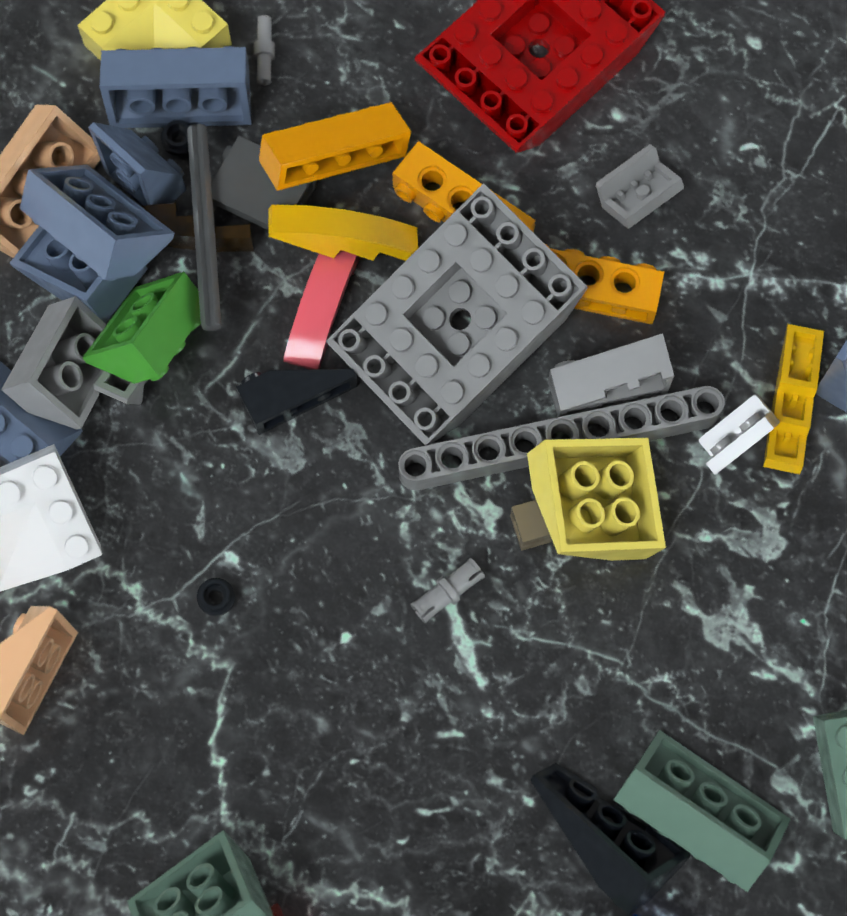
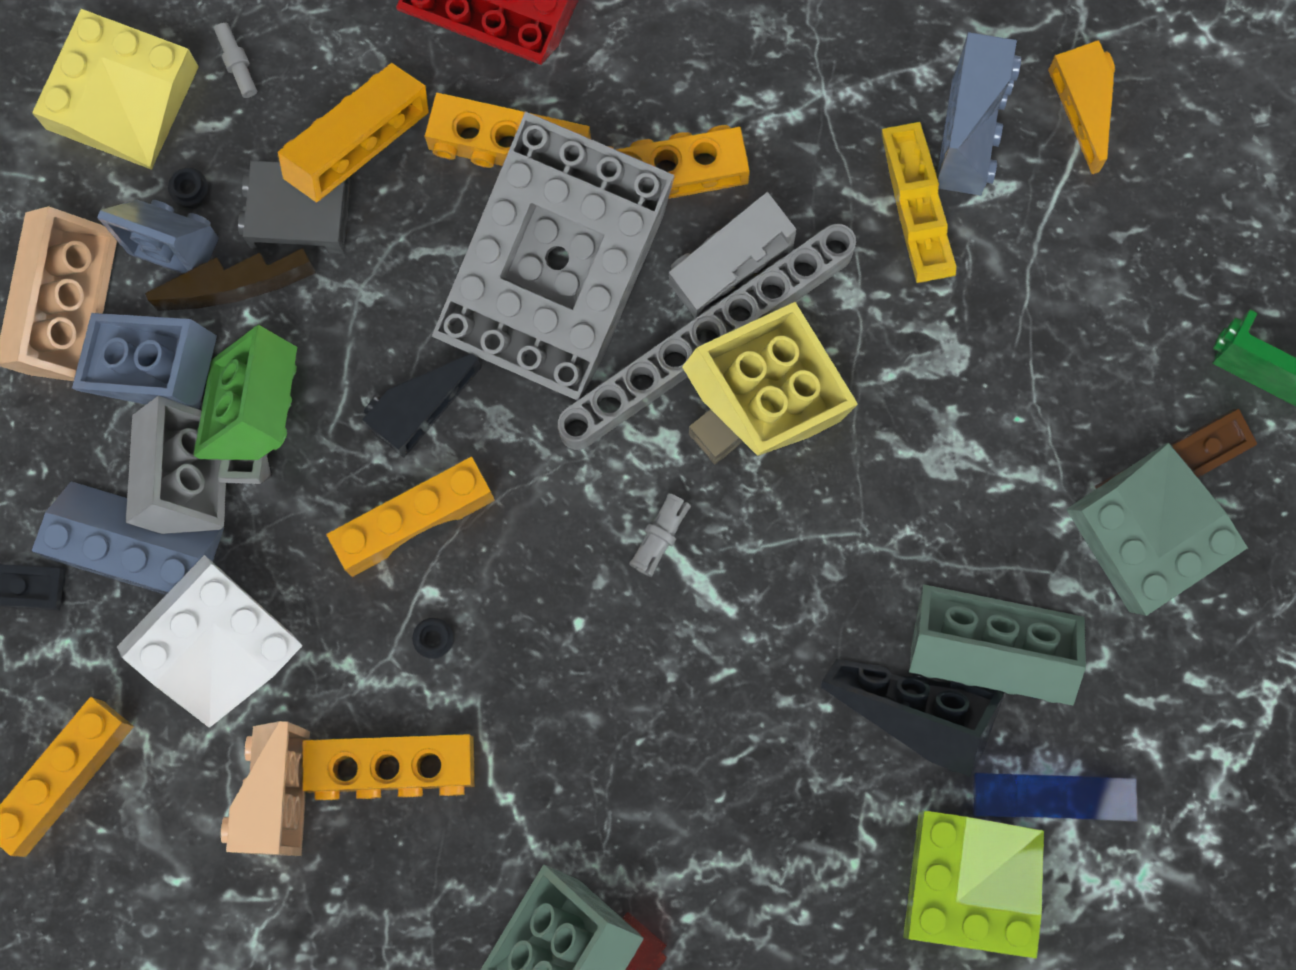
camera: 20 degrees left, 5 degrees up
(79, 658) = (323, 758): none -> light orange brick
(93, 219) = (142, 309): sand blue slope -> none
(176, 84) = (161, 134): sand blue slope -> none
(204, 228) = (258, 270): dark grey axle -> none
(207, 487) = (383, 529): none -> light orange arch
(319, 309) = (409, 294): coral slope -> none
(334, 229) = (393, 218): yellow slope -> none
(638, 187) = (676, 50): light grey bracket -> none
(737, 432) = (880, 260): bracket -> none

